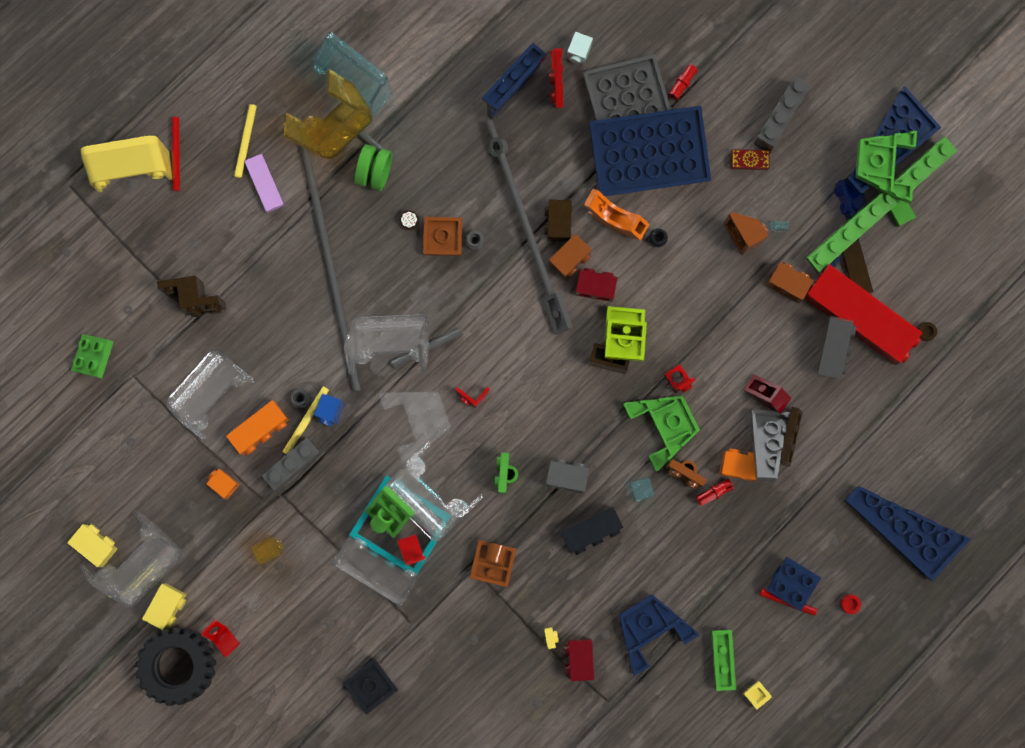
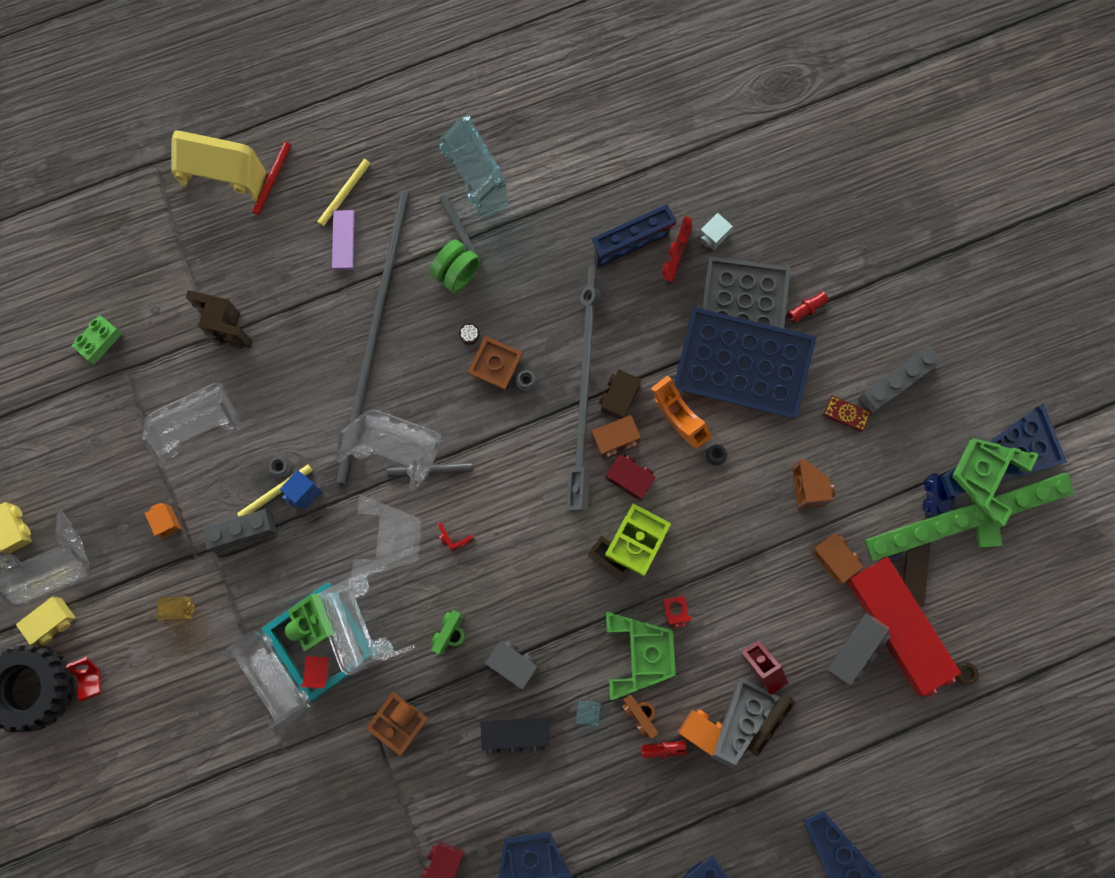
camera: 30 degrees right, 5 degrees down
(258, 428) = (223, 479): orange brick -> none
(341, 126) = (430, 218): clear yellow windscreen -> none
(370, 686) = (212, 798): black plate -> none
(551, 637) = (422, 831): light yellow plate -> none
(779, 226) = (849, 494): clear light blue tile -> none

